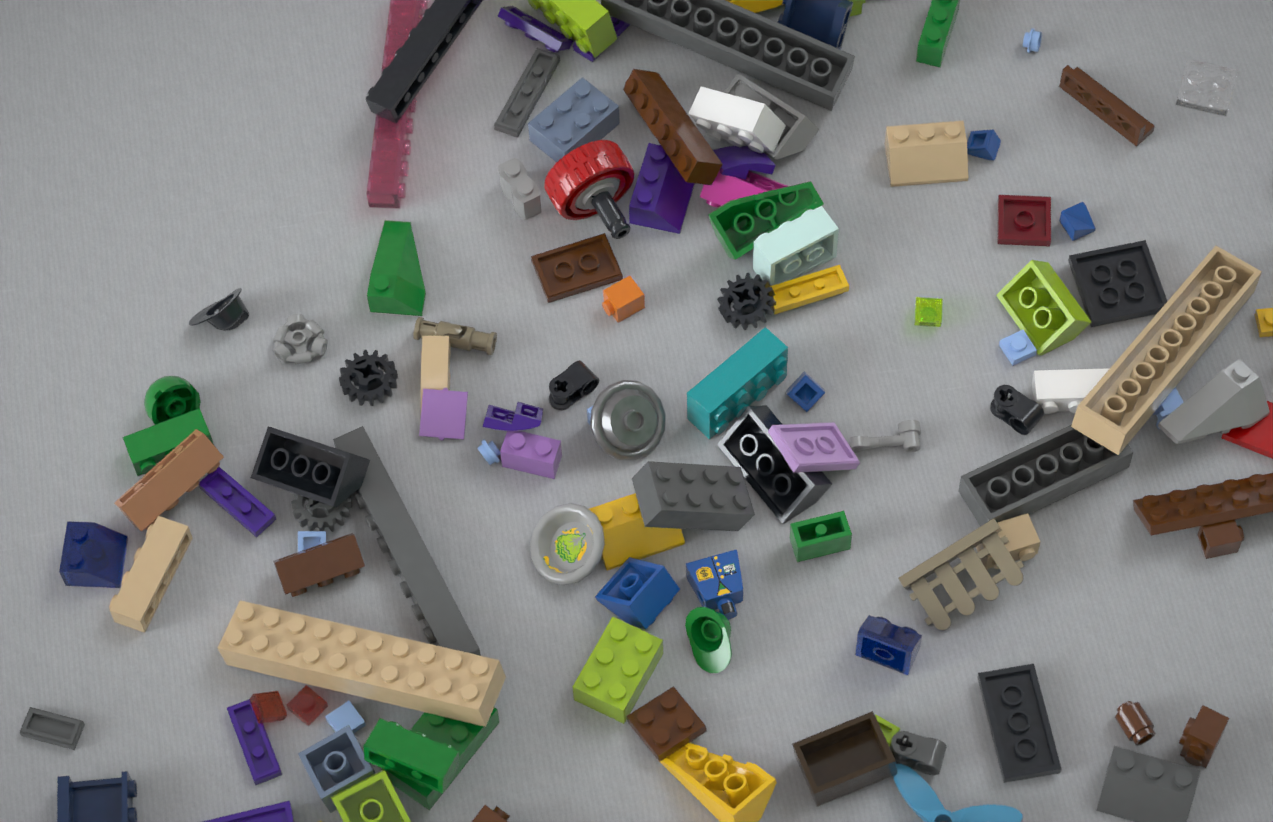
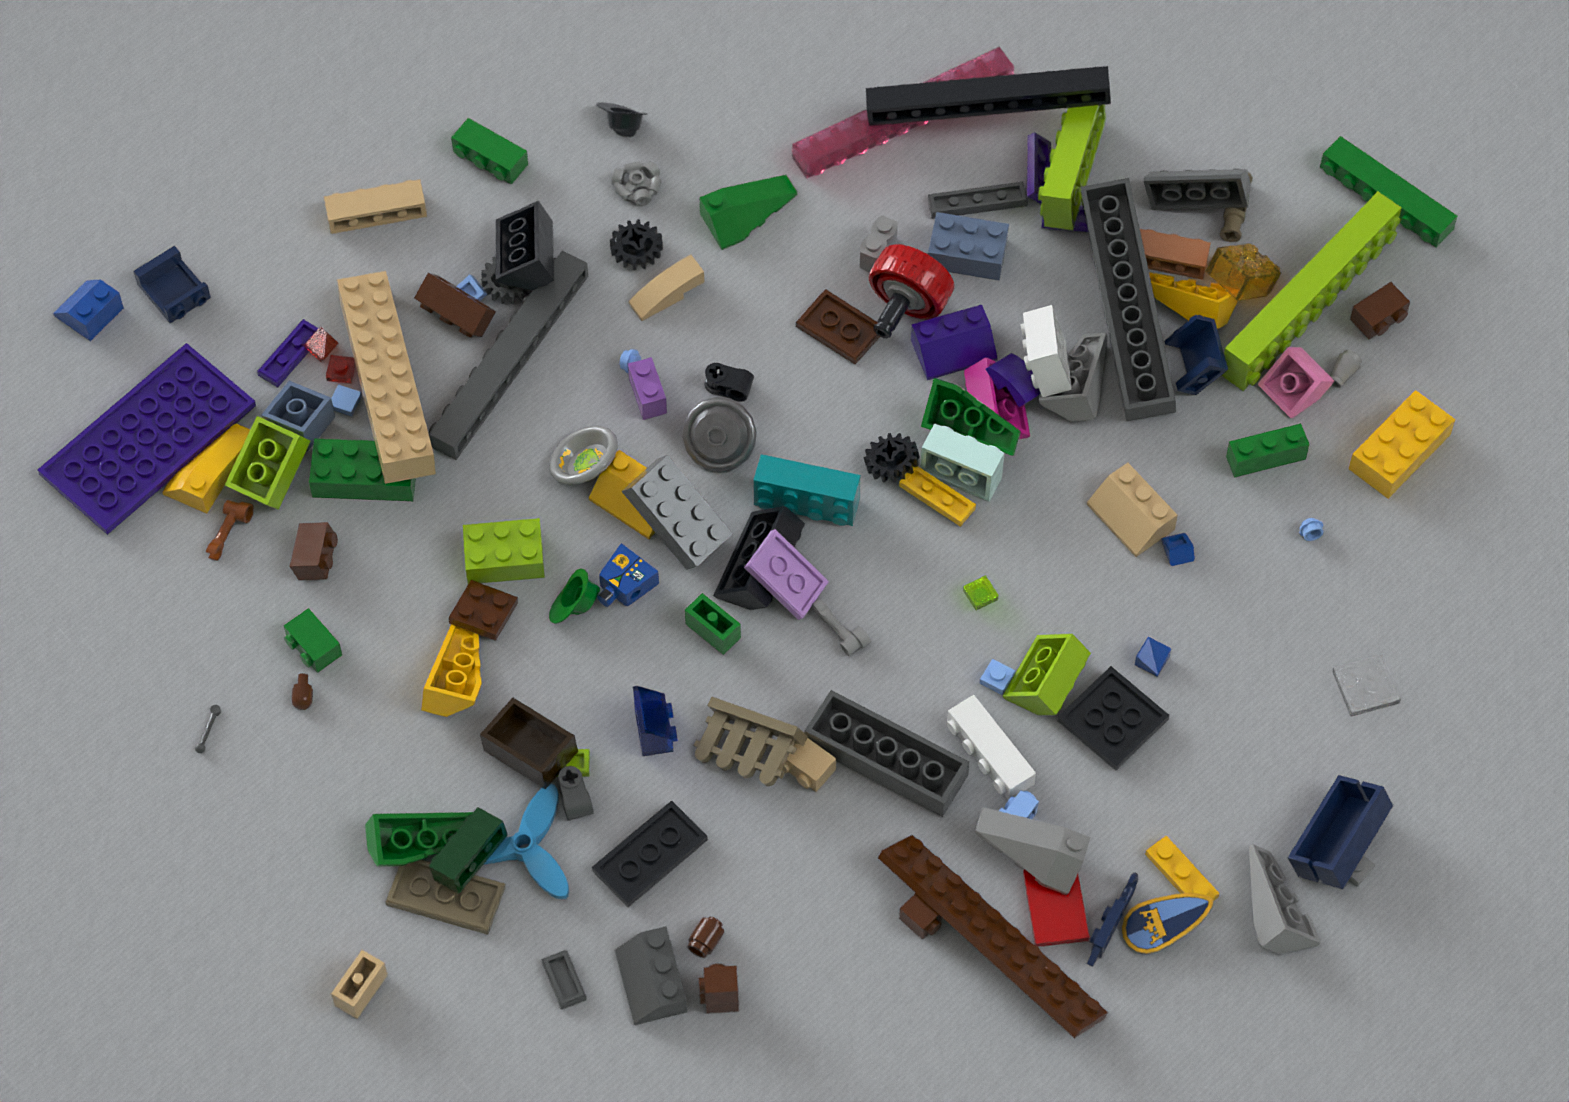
camera: 55 degrees right, 0 degrees up
(52, 728) = (216, 223): dark grey tile -> none
(92, 555) = (364, 160): clear blue slope -> none
(169, 480) = (454, 168): nougat brick -> none
(170, 398) = (522, 128): green cylinder -> none
(237, 501) = (472, 224): dark purple plate -> none
(411, 755) = (328, 448): green brick -> none
(443, 414) = (641, 311): medium lavender piece -> none
(470, 340) = (715, 280): dark tan piece -> none
(523, 417) = (665, 356): dark purple slope -> none
(623, 299) = (831, 372): orange brick -> none
(638, 592) = (578, 528): blue slope -> none
(672, 127) = (1005, 310): reddish brown brick -> none
(805, 391) = (842, 545): blue slope -> none
(1017, 410) = (933, 705): black piece -> none
(1024, 220) = (1125, 617): dark red tile -> none
(1105, 105) = (1289, 619): reddish brown fence -> none
(1165, 350) = (1059, 777): tan brick -> none

